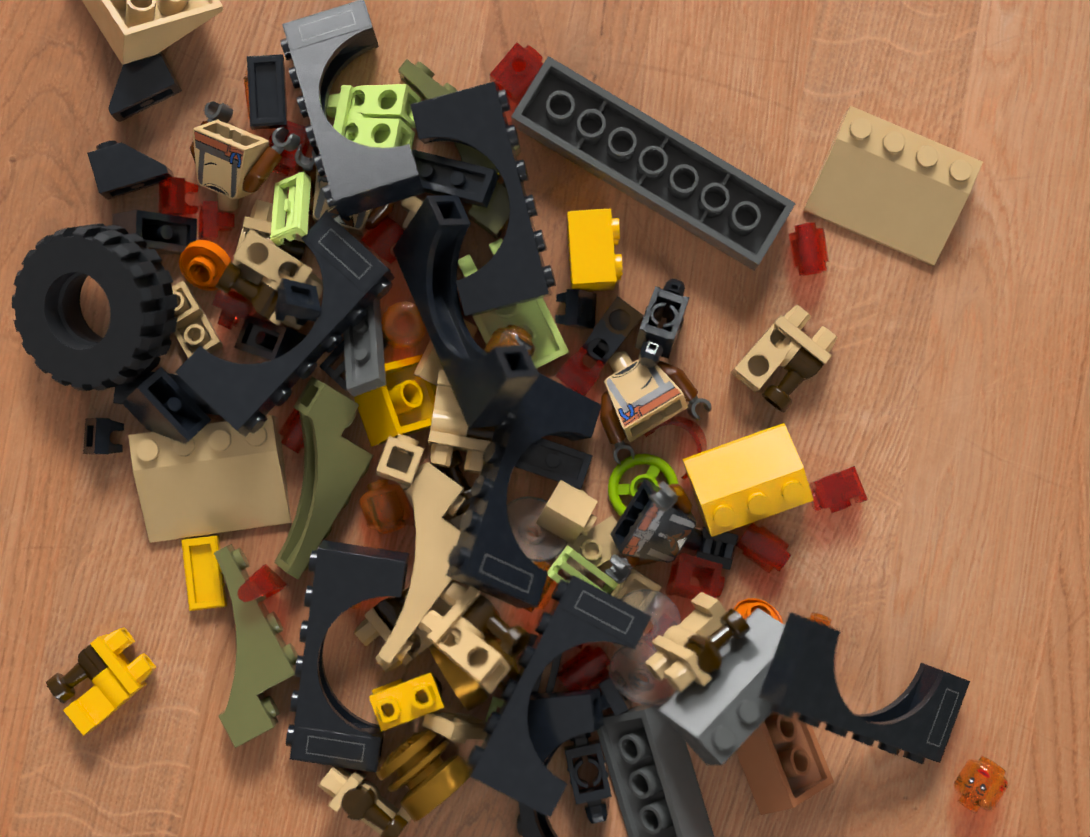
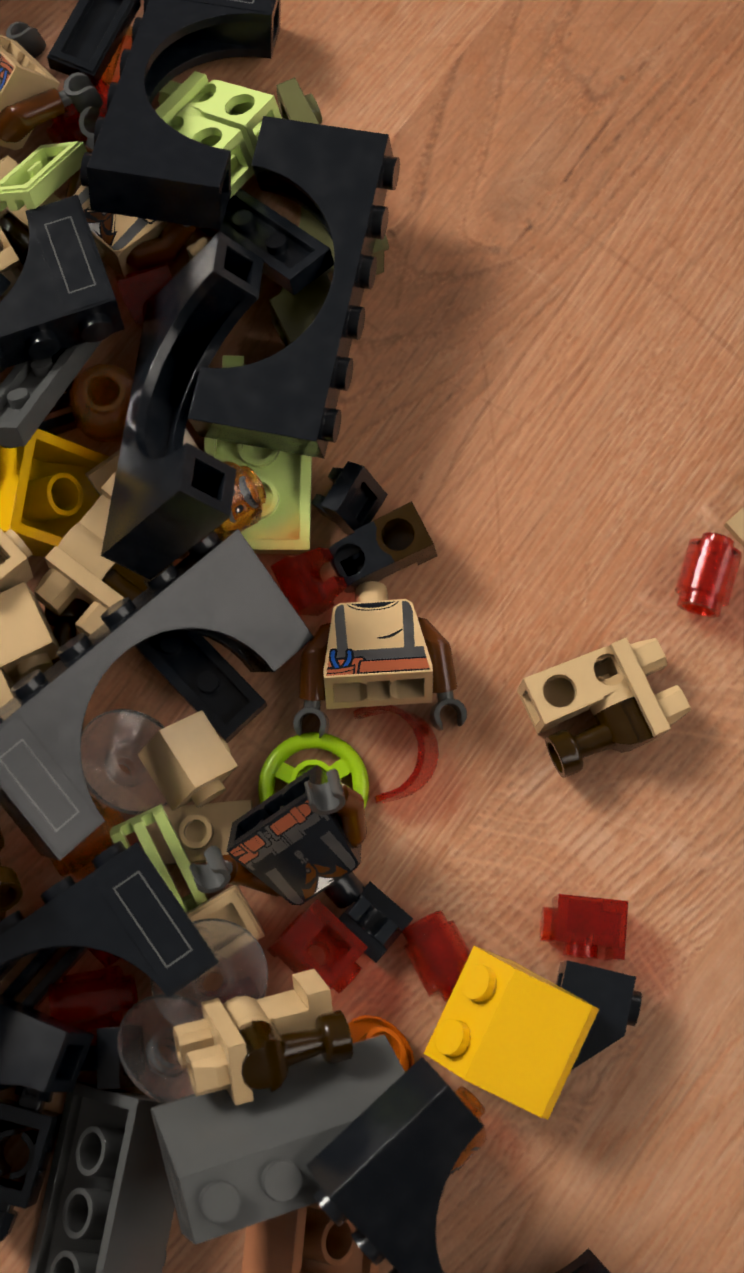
camera: 25 degrees right, 10 degrees down
(517, 71) = (432, 167): clear red brick -> none
(592, 249) = (408, 424): yellow brick -> none
(651, 163) = (550, 360): dark grey brick -> none
(663, 304) = (474, 561): black piece -> none
(747, 480) = (465, 844): yellow slope -> none
(824, 570) = (511, 1032): none -> yellow slope
(860, 540) = (609, 992): none -> black slope

